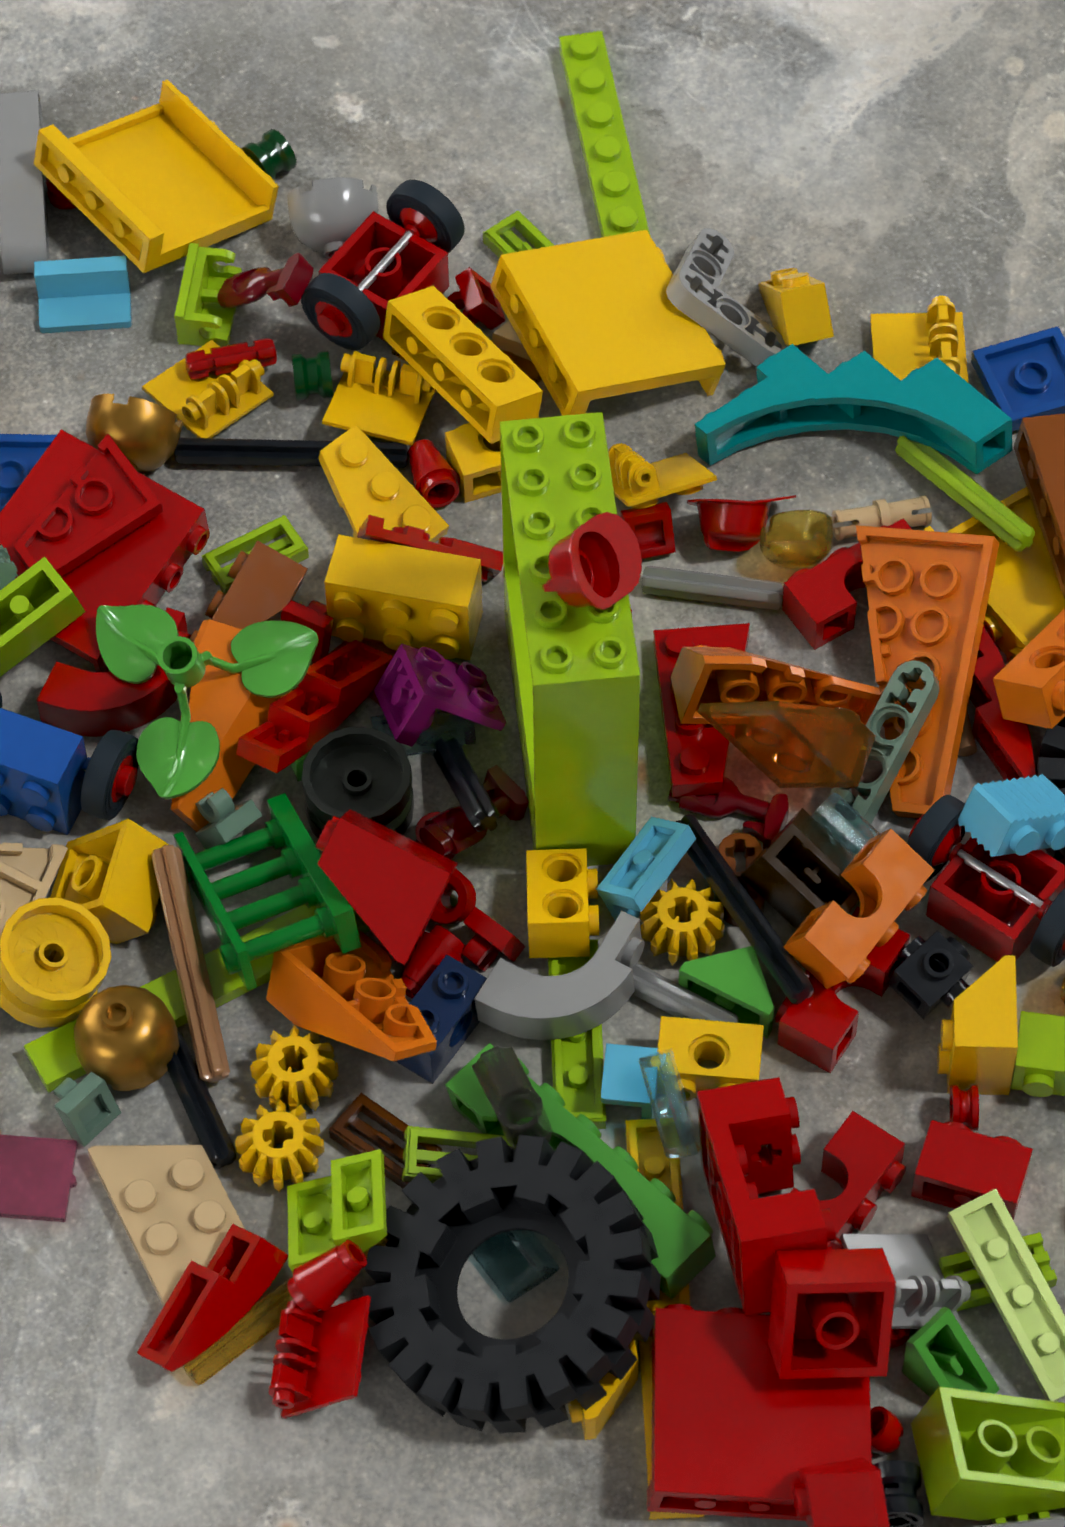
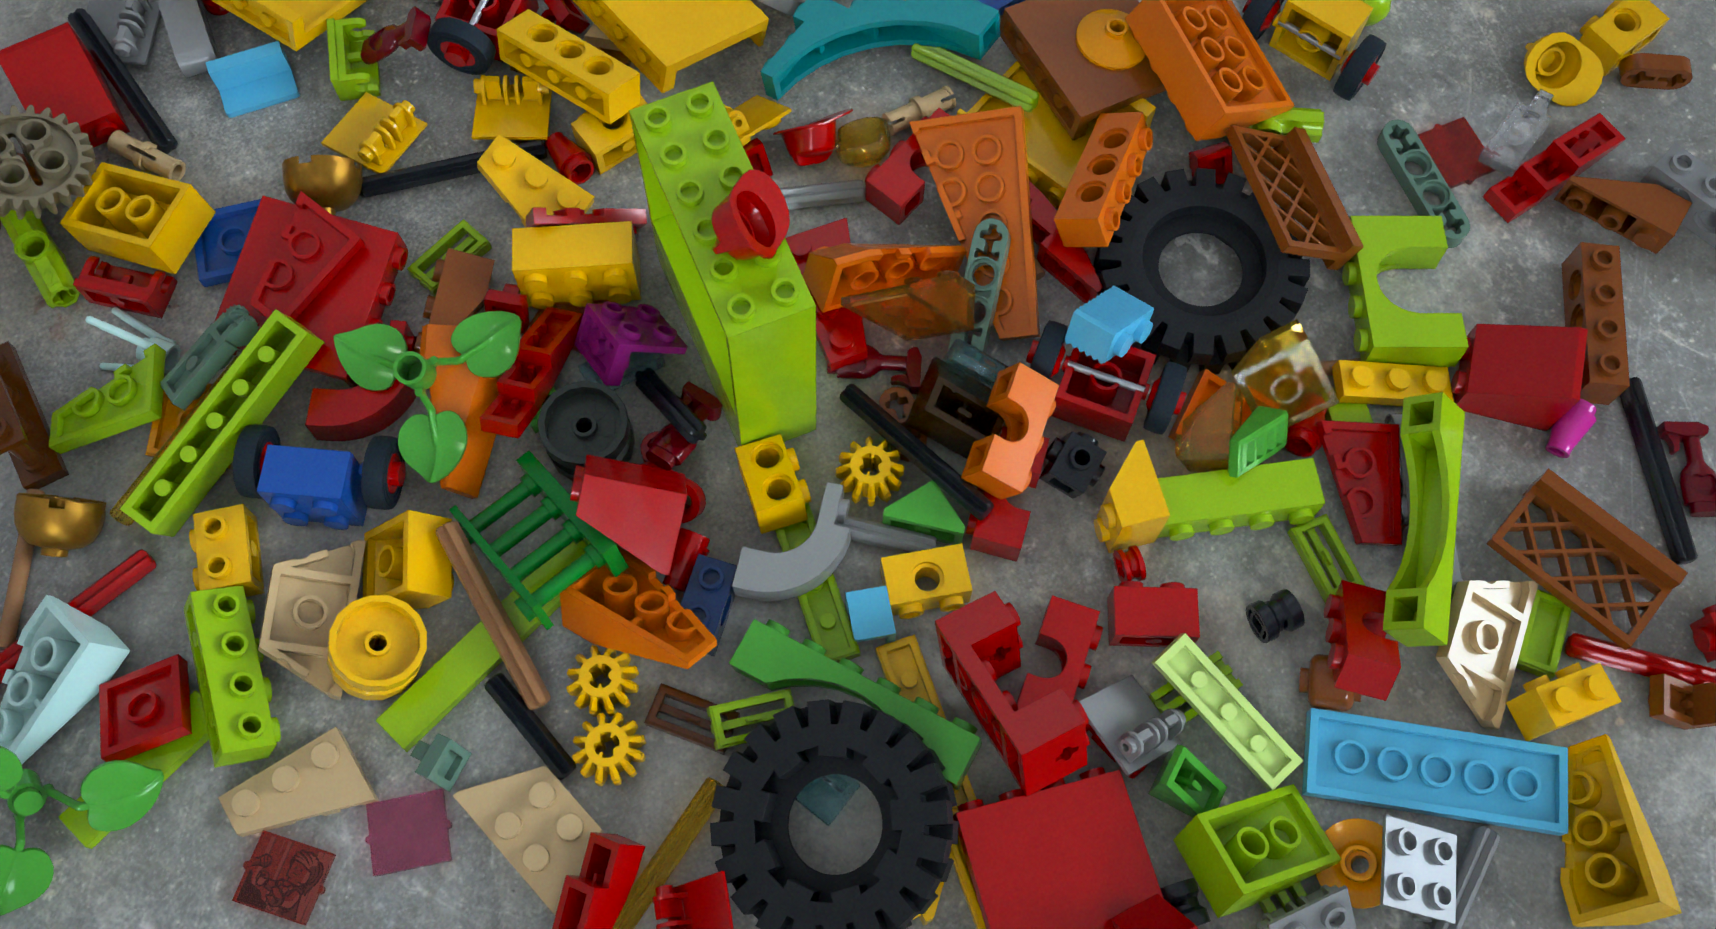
camera: 20 degrees left, 10 degrees up
(126, 1037) = (457, 694): pearl gold cylinder -> none
(224, 818) = (487, 483): sand green tile -> none
(227, 358) = (382, 104): red axle -> none
(312, 375) = (453, 102): dark green wheel -> none
(325, 1277) = (680, 862): red cone -> none
(338, 1208) = (674, 800): lime slope -> none
(489, 940) = (726, 526): red tile -> none
(511, 1095) = (788, 664): clear smoke piece -> none
(645, 866) = (831, 437): medium azure panel -> none
(669, 1104) = (911, 631): clear light blue slope -> none
(831, 1313) = (1103, 785): red brick -> none
(885, 1431) = (1162, 849): red hinge -> none

